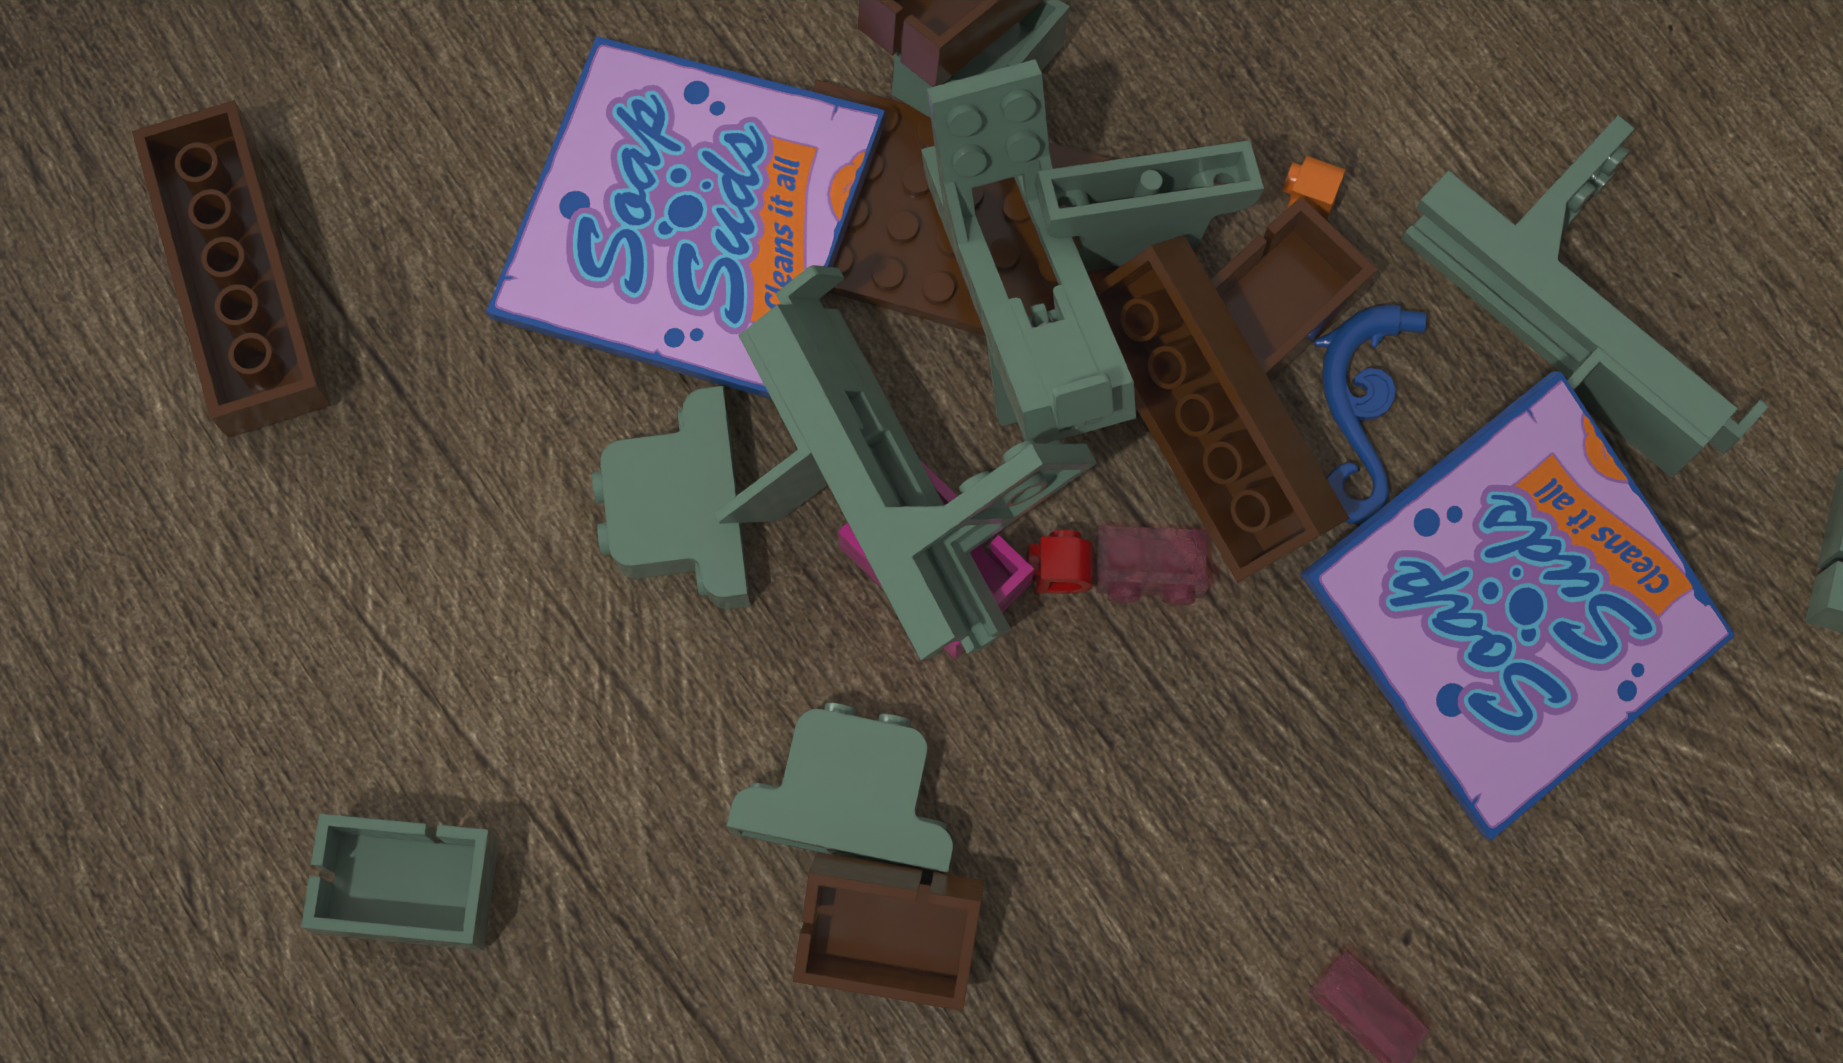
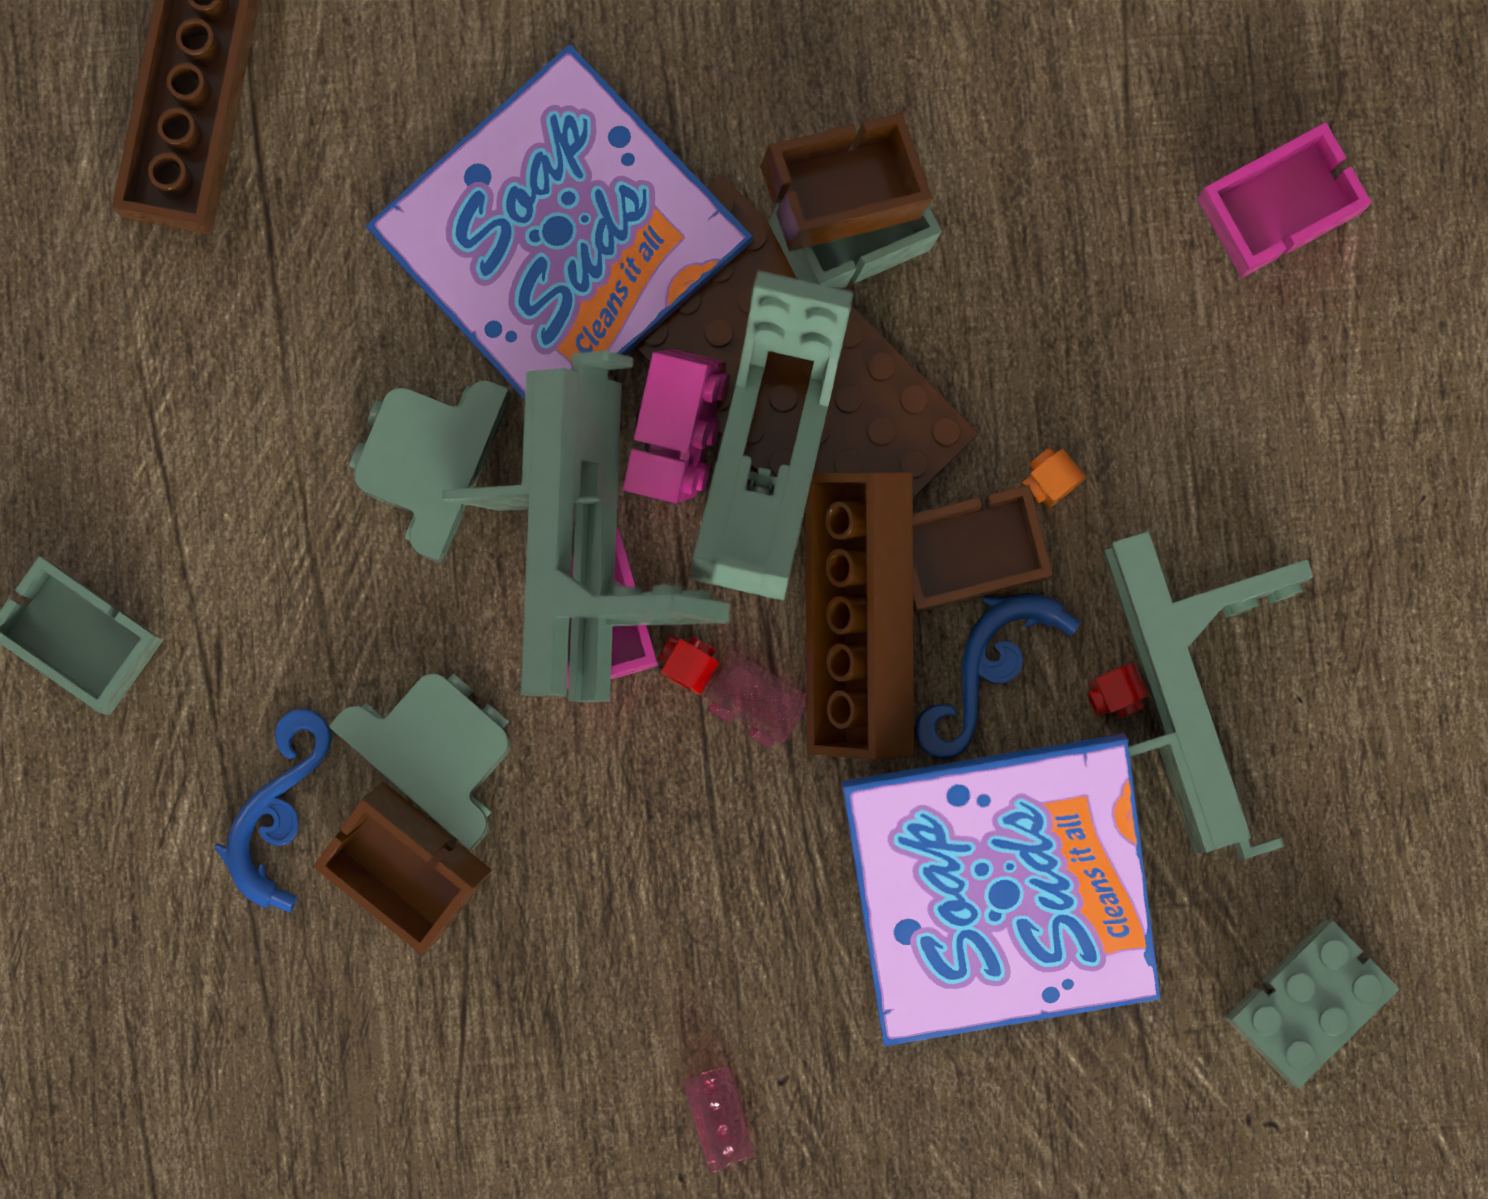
camera: 30 degrees right, 10 degrees up
(700, 1023) = (236, 855): none -> blue plant
(917, 324) = (678, 424): none -> dark pink piece
(1147, 199) = (896, 431): sand green brick -> none
(1503, 357) = (1118, 691): none -> red plate

